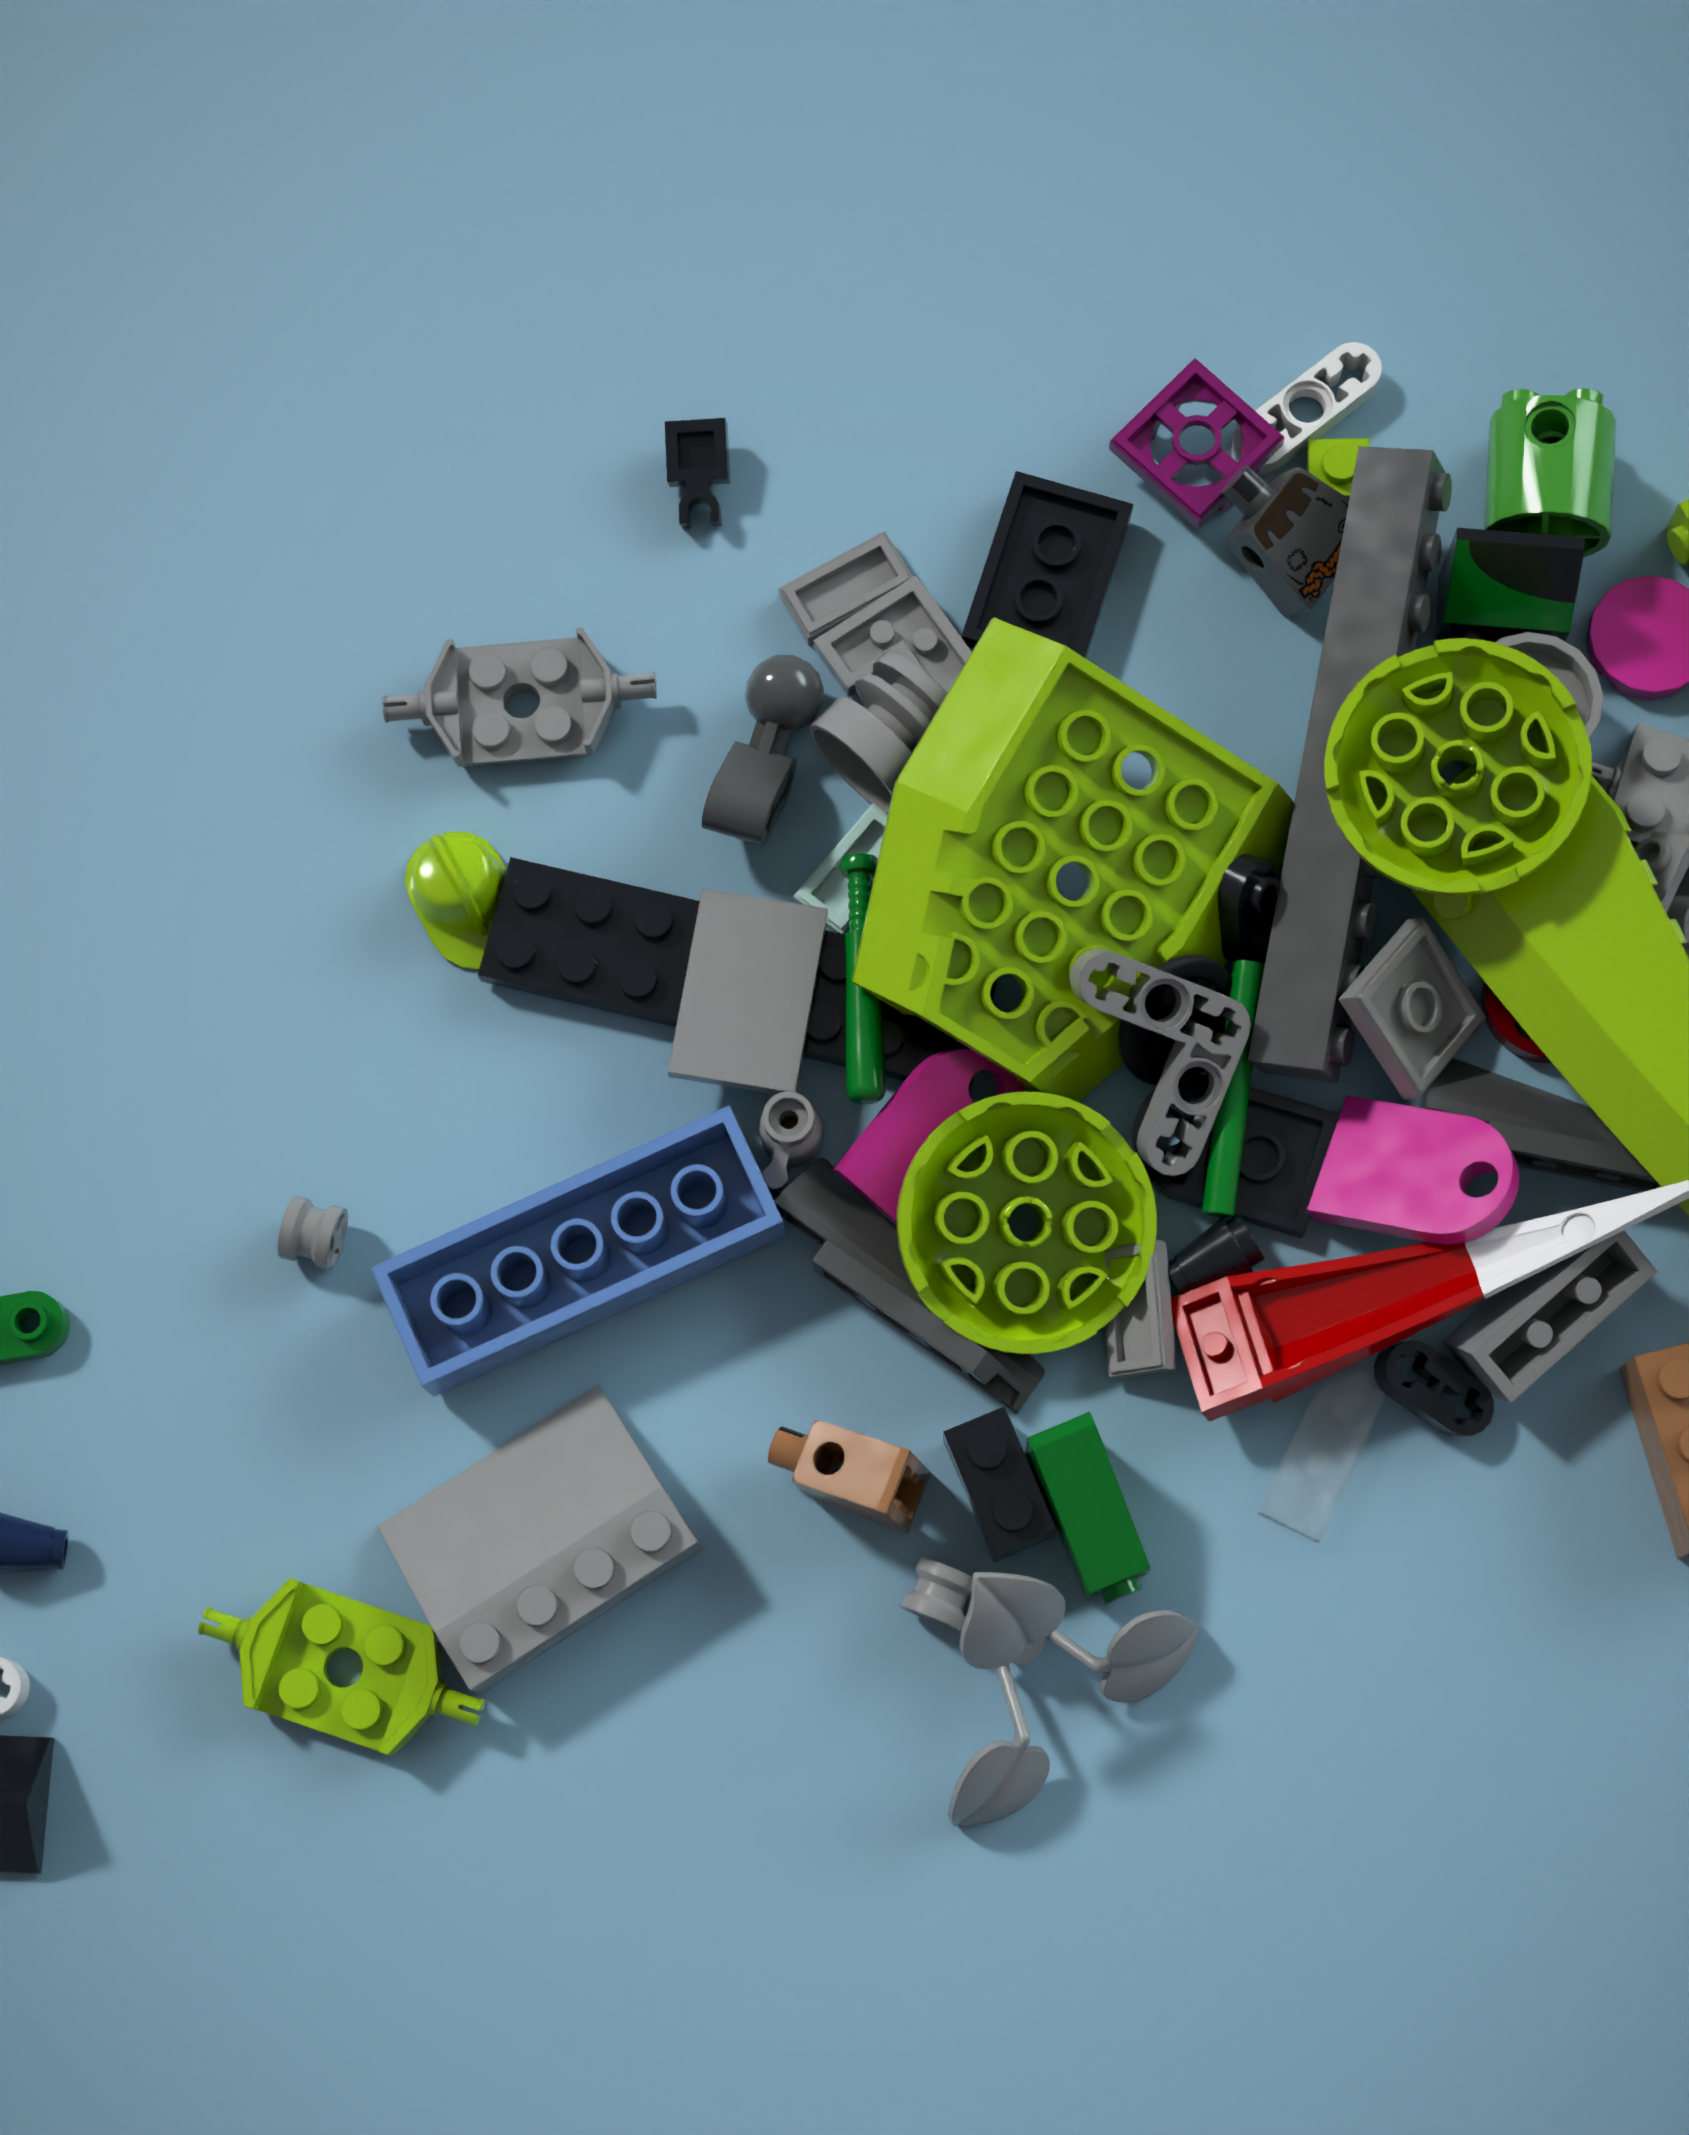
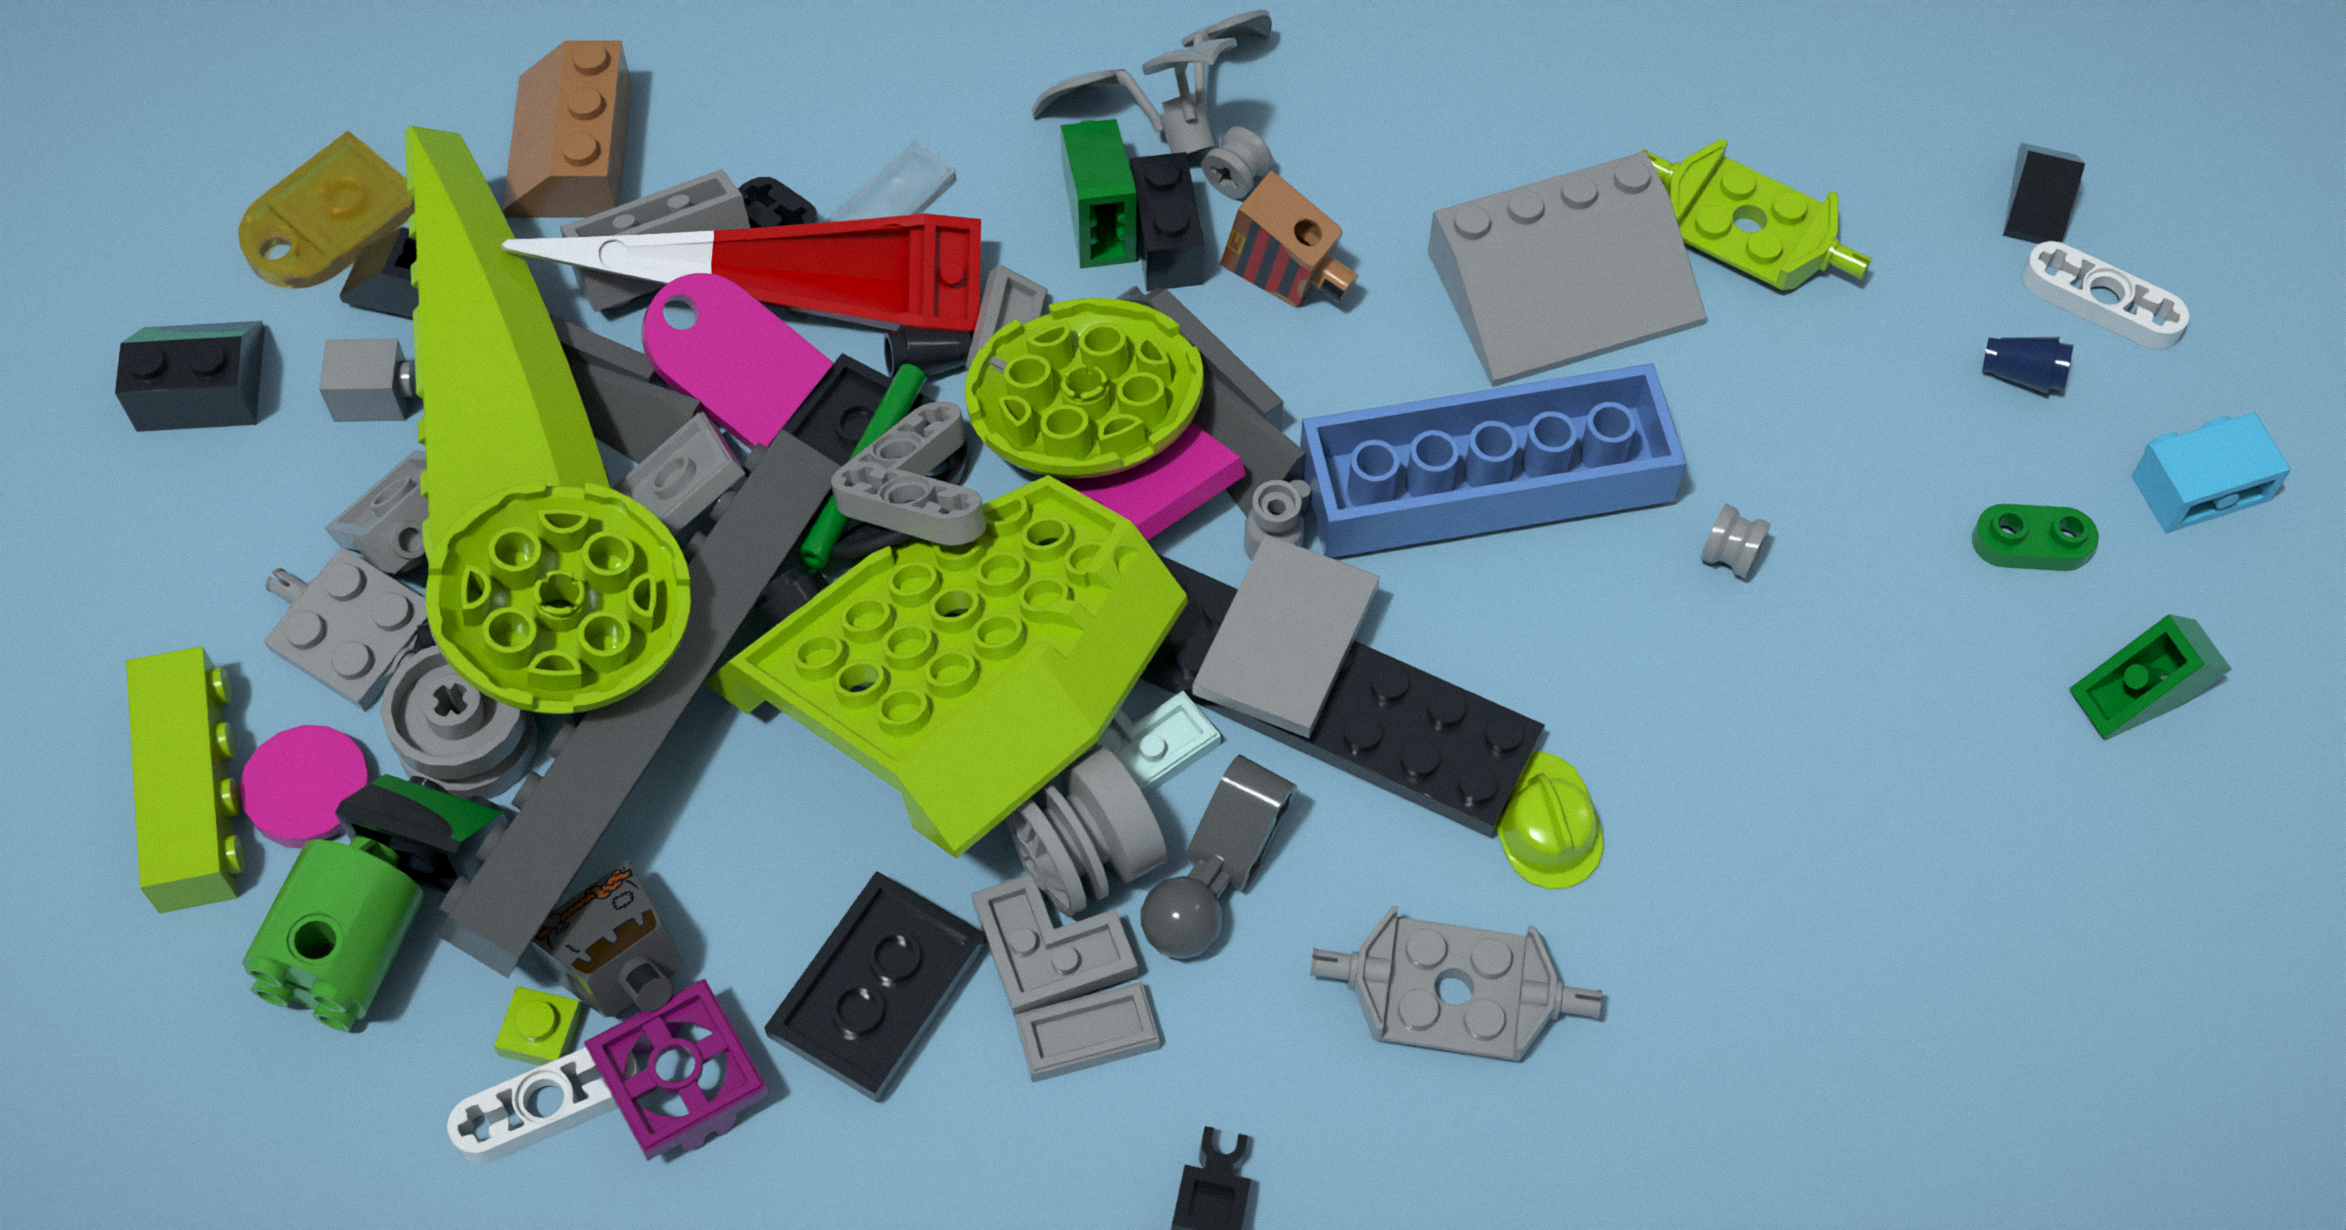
camera: 175 degrees left, 15 degrees down
(863, 1011) = (1188, 568): green piece -> none

